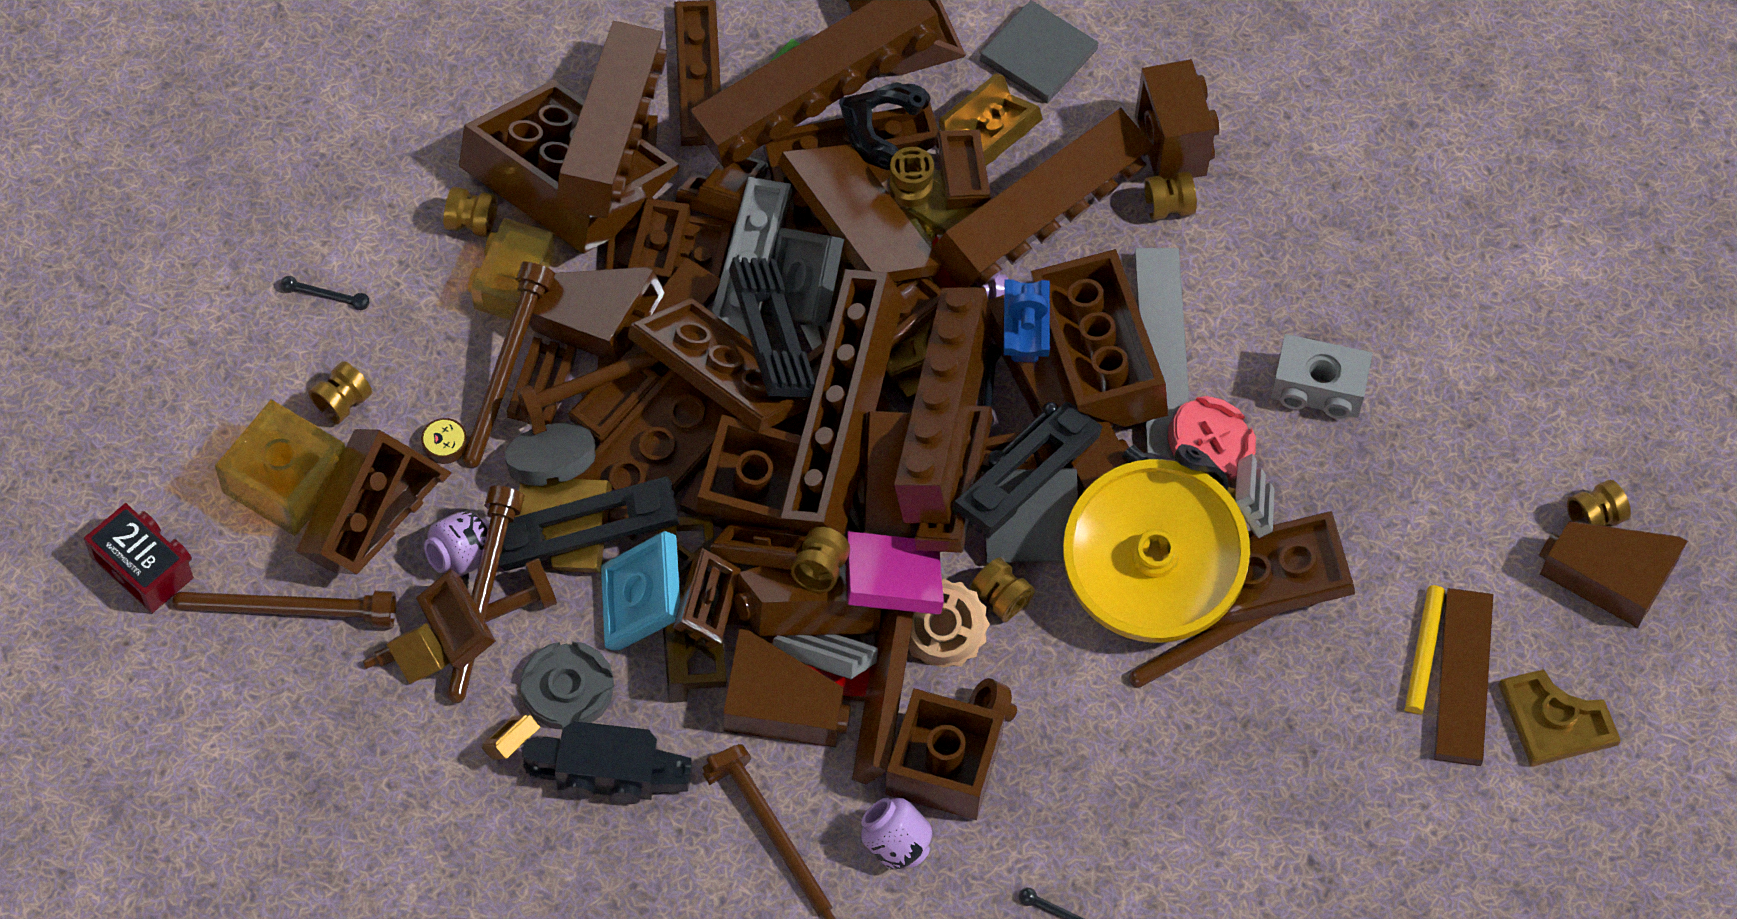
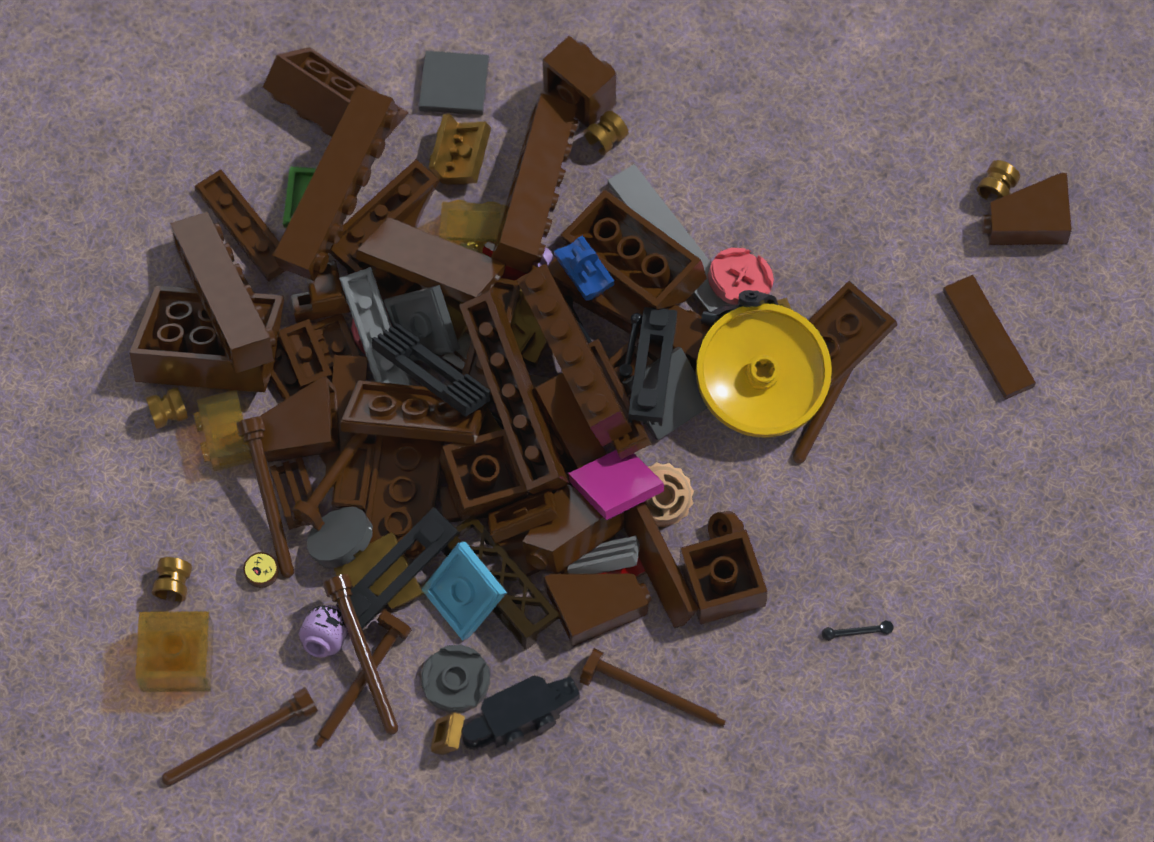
camera: 30 degrees left, 5 degrees up
(140, 557) = (123, 767): brick -> none
(359, 301) = (135, 511): black hinge -> none
(367, 500) = (246, 640): reddish brown wedge -> none
(418, 653) = (351, 717): pearl gold tile -> none
(455, 619) = (360, 681): reddish brown tile -> none
(690, 595) = (507, 569): reddish brown tile -> none
(820, 559) = (570, 502): pearl gold wheel -> none
(858, 119) = (381, 188): black helmet -> none
(896, 833) = (727, 644): lavender head -> none
(911, 177) = (446, 224): pearl gold wheel -> none
(962, 168) = (470, 192): reddish brown tile -> none
(1002, 589) = (689, 448): pearl gold wheel -> none
(1254, 491) = (795, 299): light grey tile -> none
(1340, 366) = (789, 184): light grey brick -> none
(1425, 649) = (955, 334): yellow bar -> none
(1553, 722) = (1058, 333): pearl gold tile -> none

